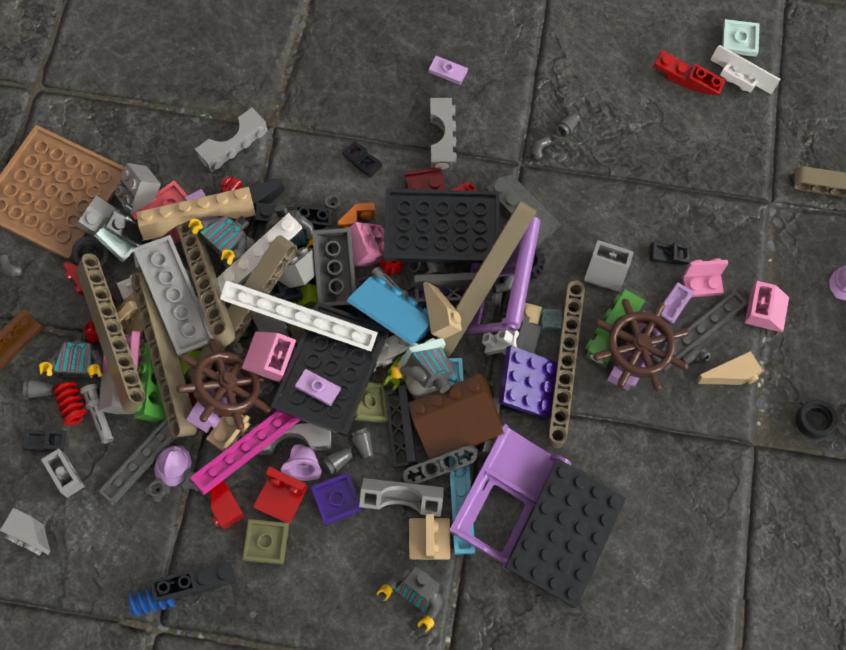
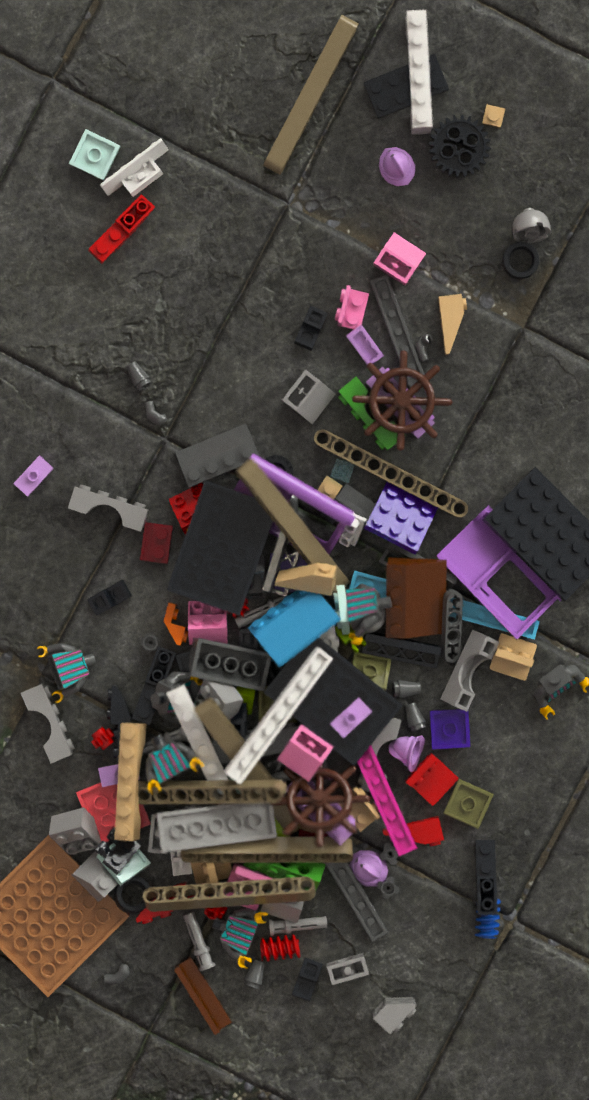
camera: 65 degrees left, 20 degrees up
(51, 332) = (200, 947): none -> light grey pin
(286, 141) = (68, 667): none -> dark grey torso

